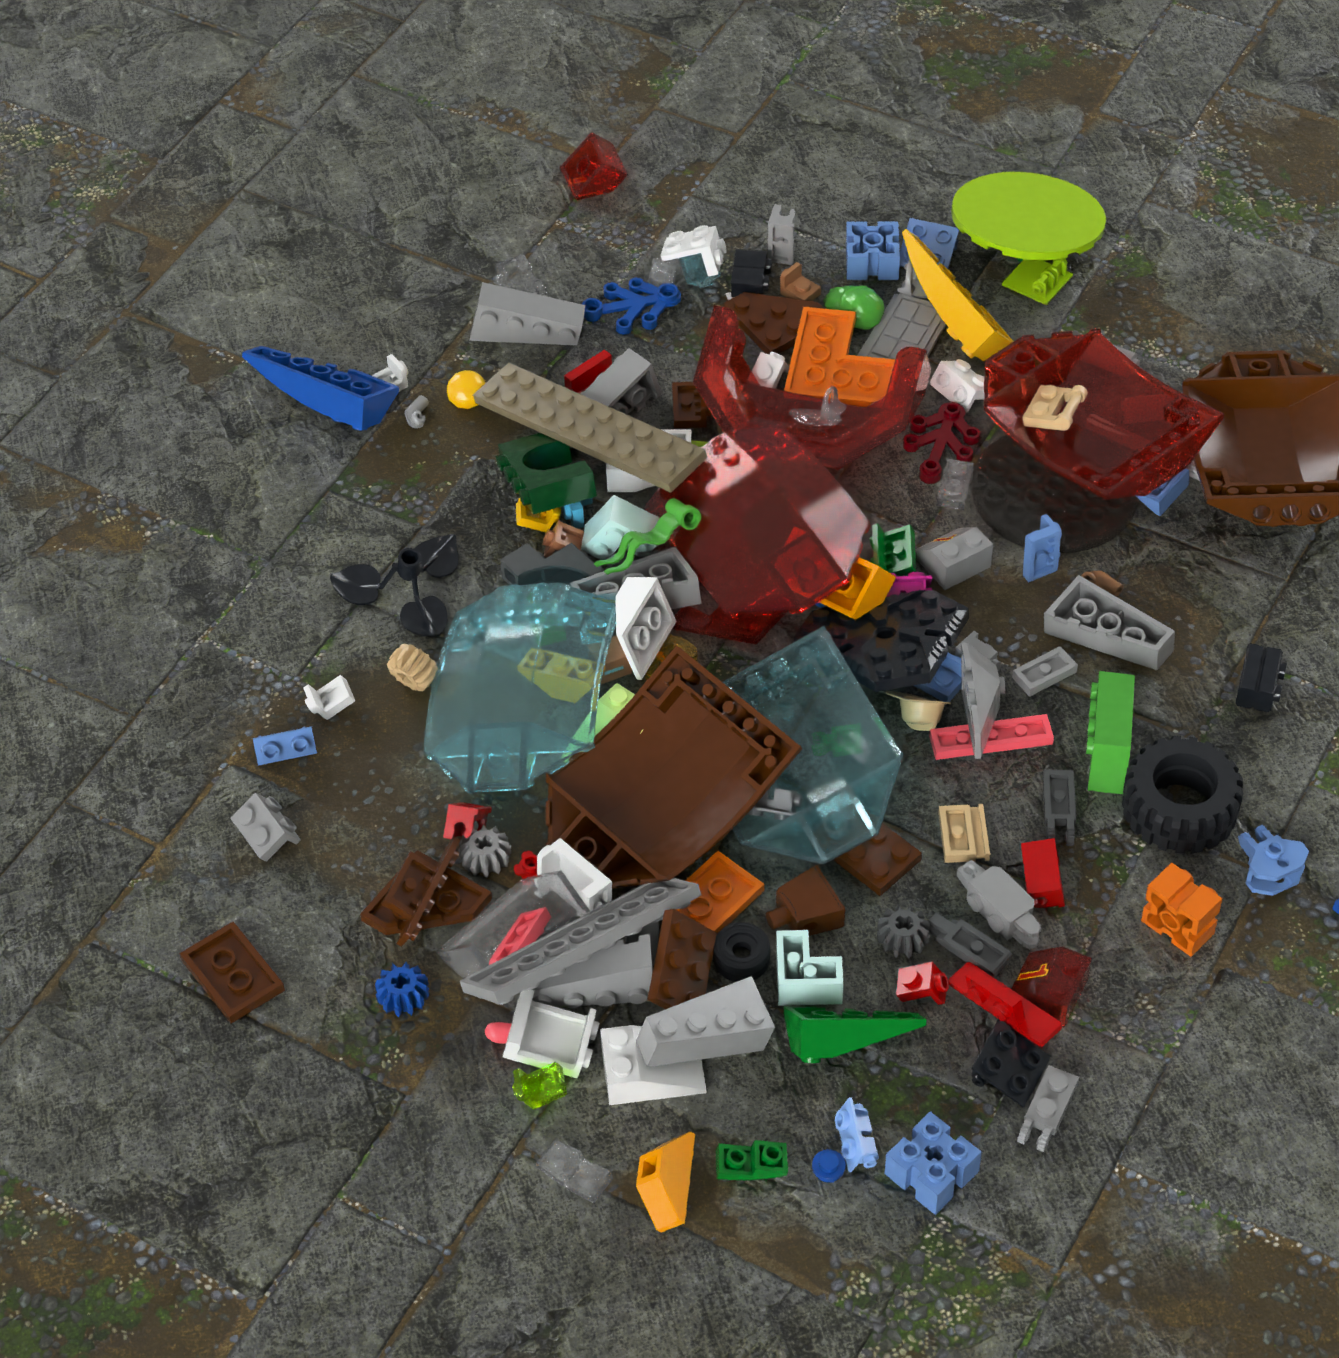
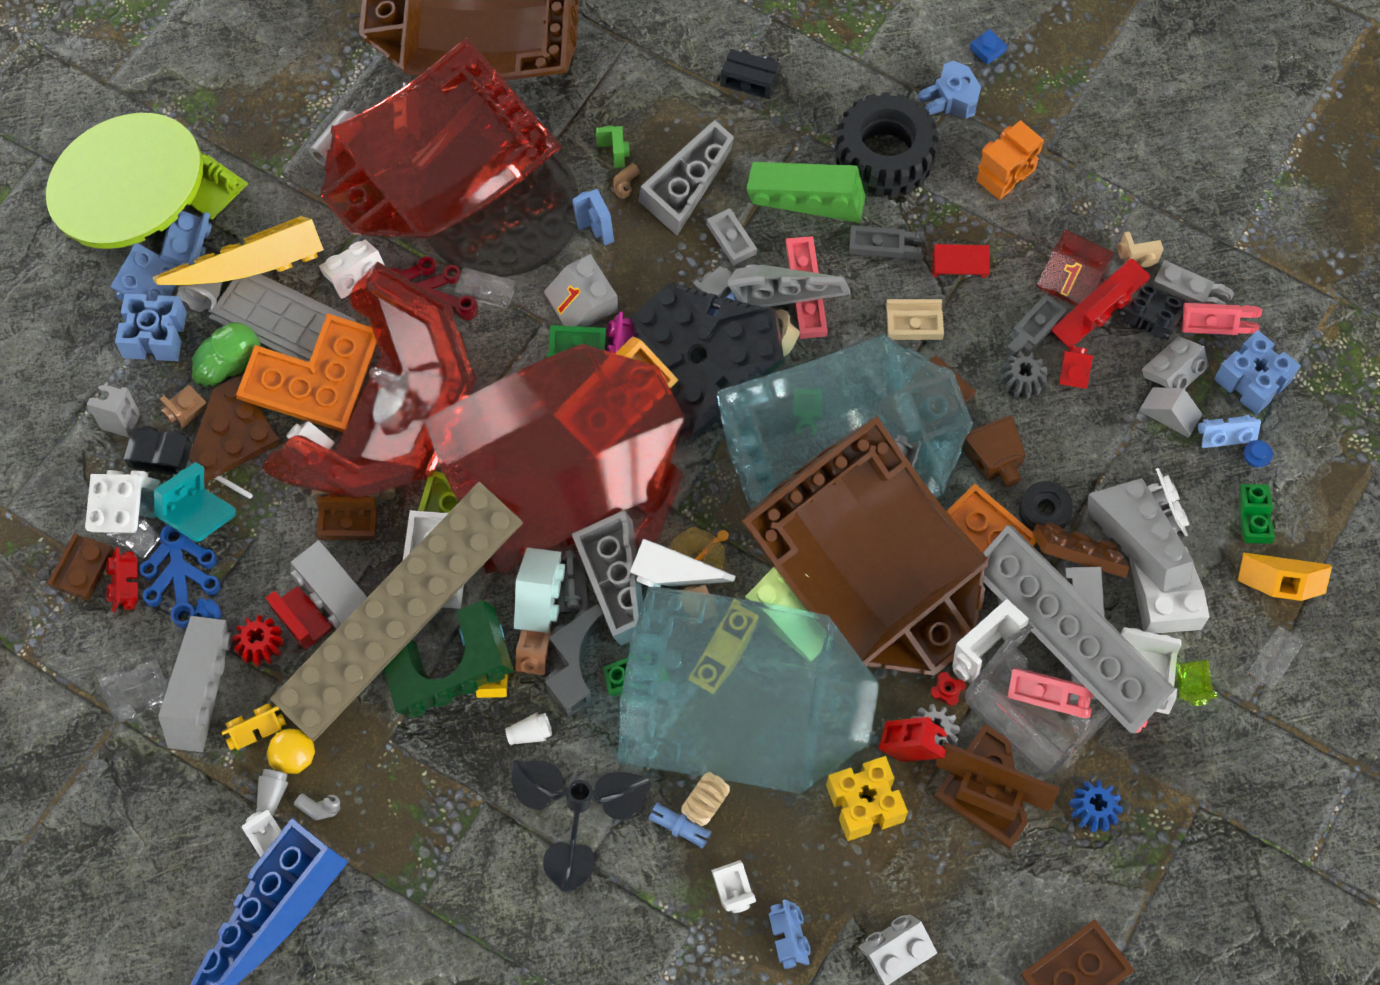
camera: 90 degrees left, 15 degrees up
(381, 673) = (680, 825): none -> medium blue pin
(412, 794) = (859, 814): none -> yellow brick
(429, 379) = (270, 790): none -> light grey cone
(484, 356) = (242, 730): none -> yellow hinge
(486, 546) = (529, 730): none -> white cone
(566, 354) = (257, 631): none -> red gear
(593, 322) = (207, 609): none -> blue plate
(635, 264) = (119, 591): none -> red hinge
(636, 244) = (80, 566): none -> reddish brown plate
(676, 515) = (565, 548): bright green flag -> none
(694, 294) = (189, 506): none -> teal bracket
(749, 1060) = (1166, 497): none -> white hinge
(806, 978) = (1077, 459): light aqua brick -> none
(826, 1034) = (1127, 434): green wedge -> none
(876, 1081) = (1172, 408): none -> light grey slope
(934, 1085) = (1177, 364): none -> light grey bracket
(975, 265) = (185, 239): none -> medium blue bracket
(1001, 902) = (992, 296): light grey hinge -> none
(1003, 1130) = (1219, 319): none -> coral hinge
(1047, 403) = (418, 189): tan plate -> none
(1080, 1048) = (1144, 254): none -> tan bracket
(1141, 569) = (613, 137): none -> bright green bracket

